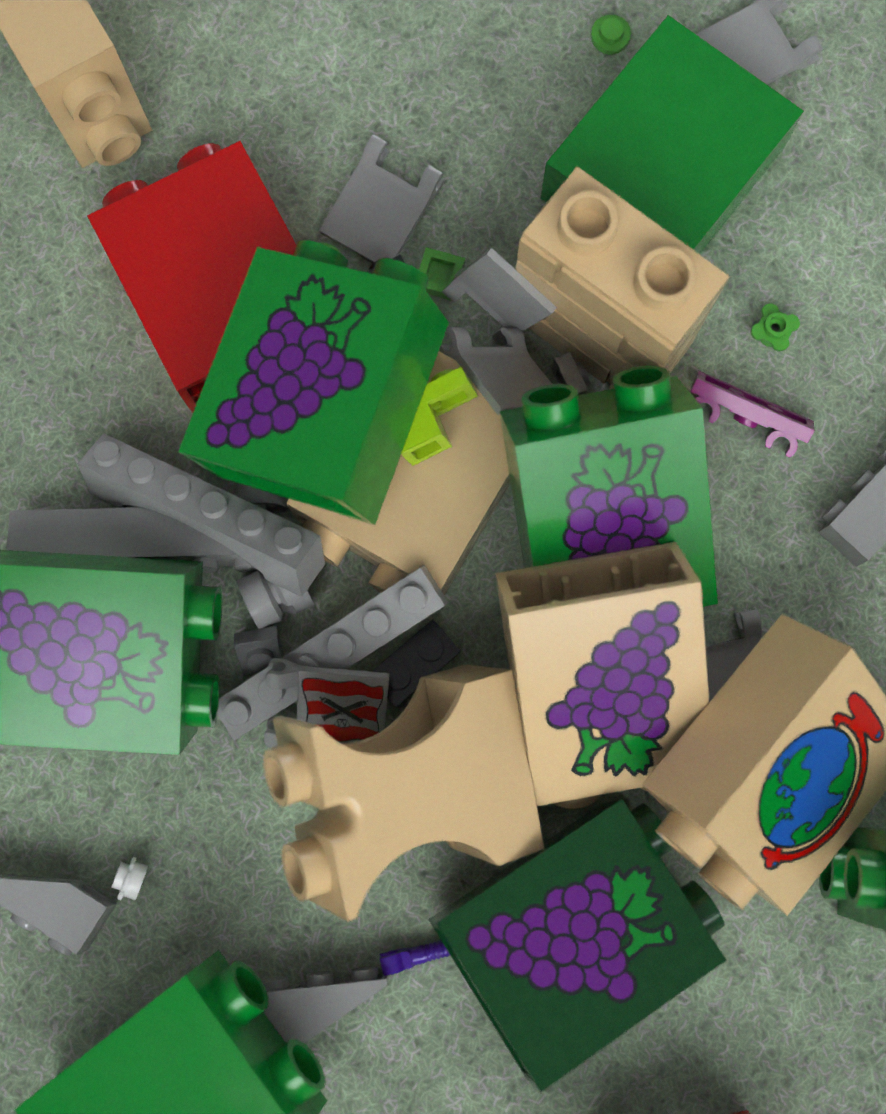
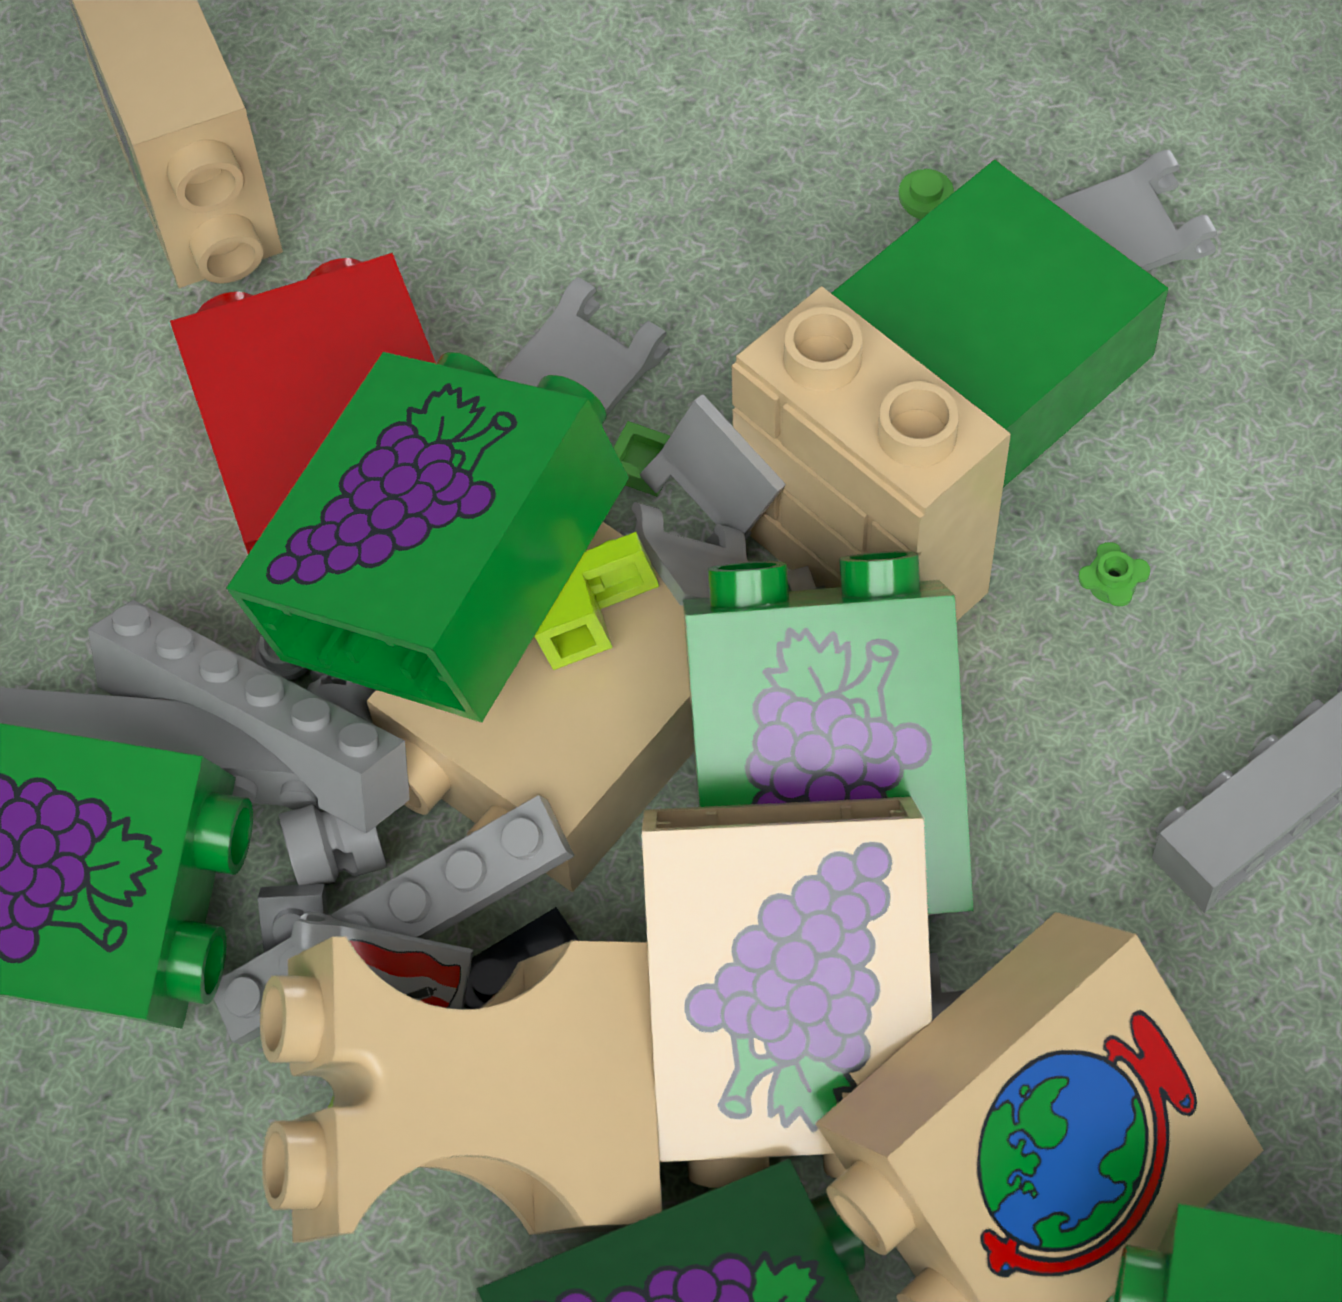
camera: 10 degrees right, 20 degrees down
(129, 879) = (35, 1219): white plate -> none
(753, 410) = (1063, 678): plate -> none

